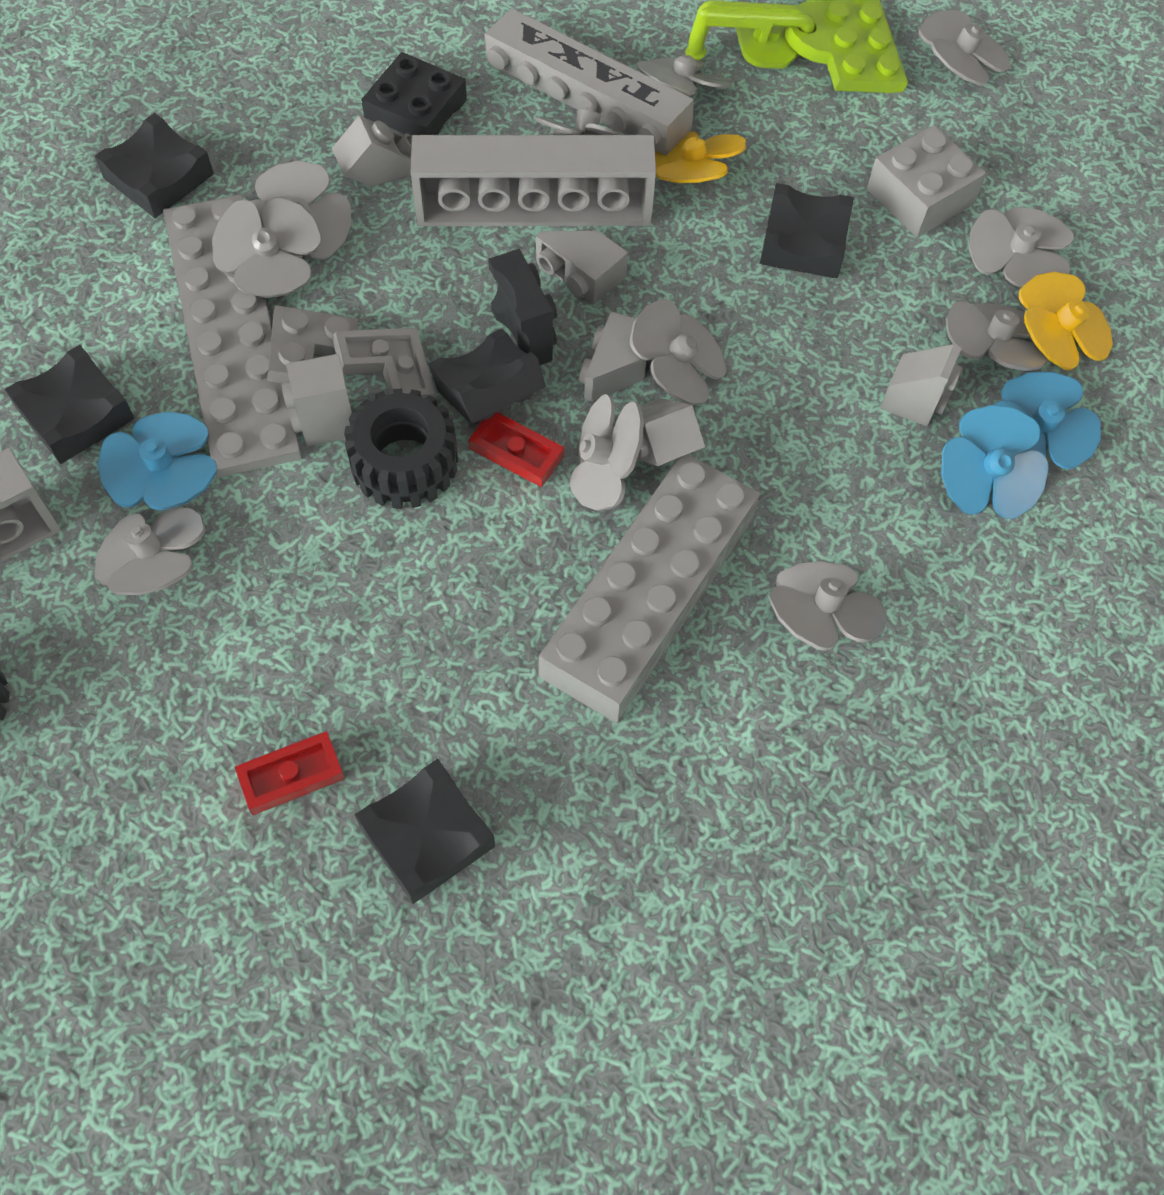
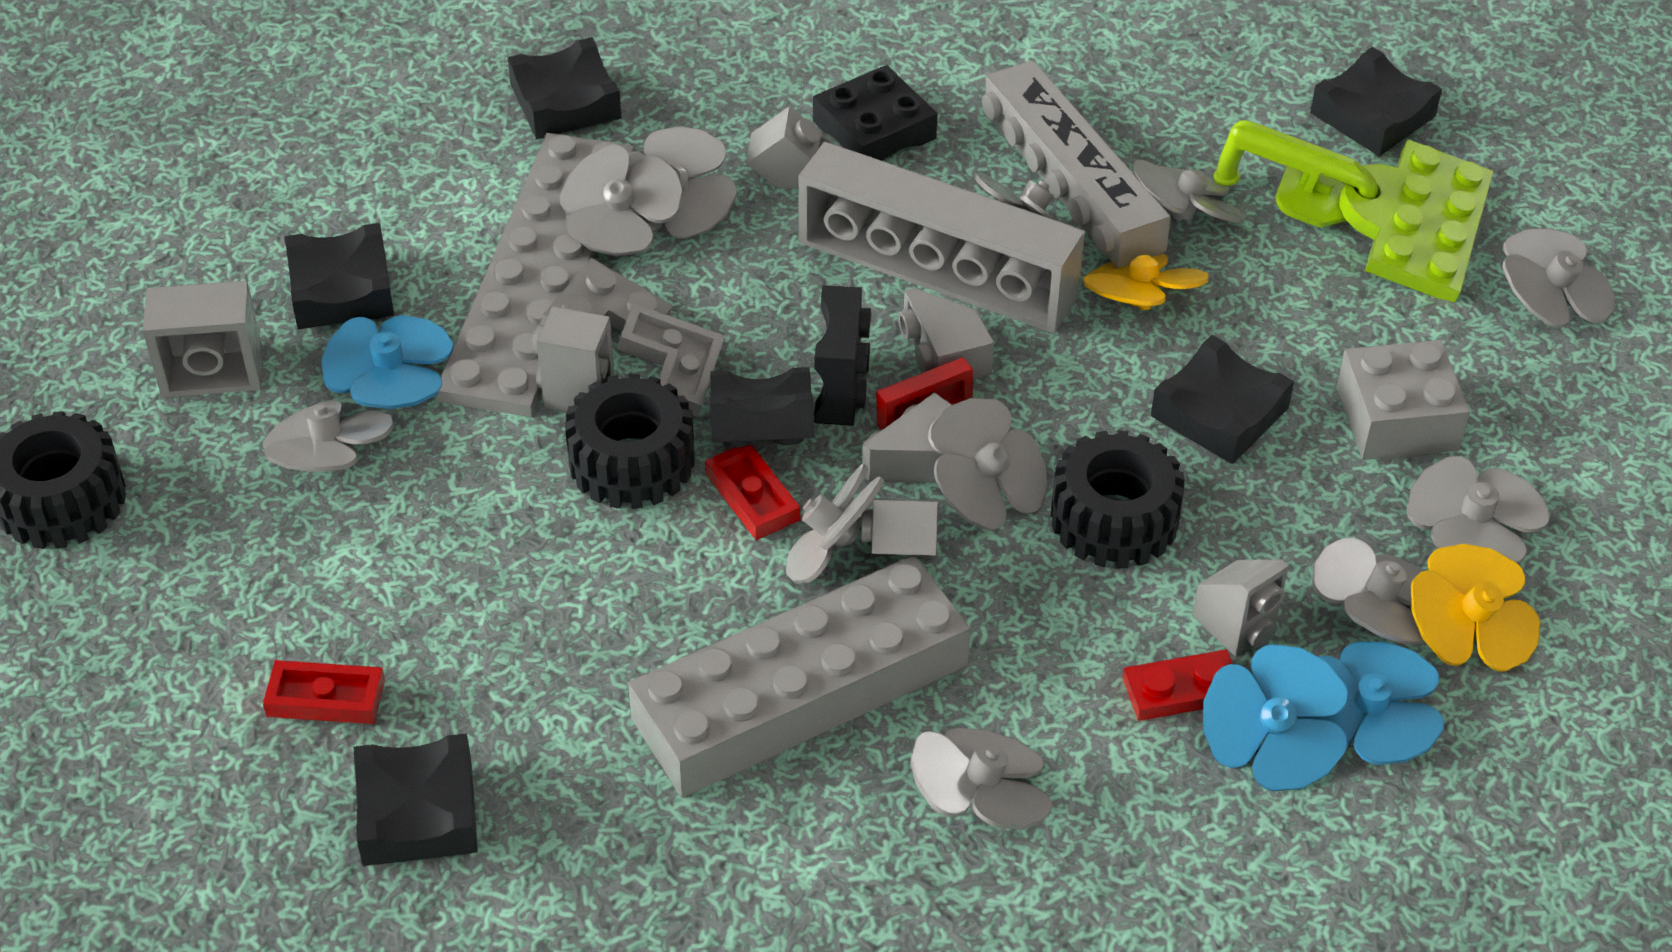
camera: 30 degrees right, 15 degrees down
(583, 325) = (949, 381): none -> red plate
(783, 366) = (1113, 527): none -> black tyre
(907, 466) = (1172, 684): none -> red plate

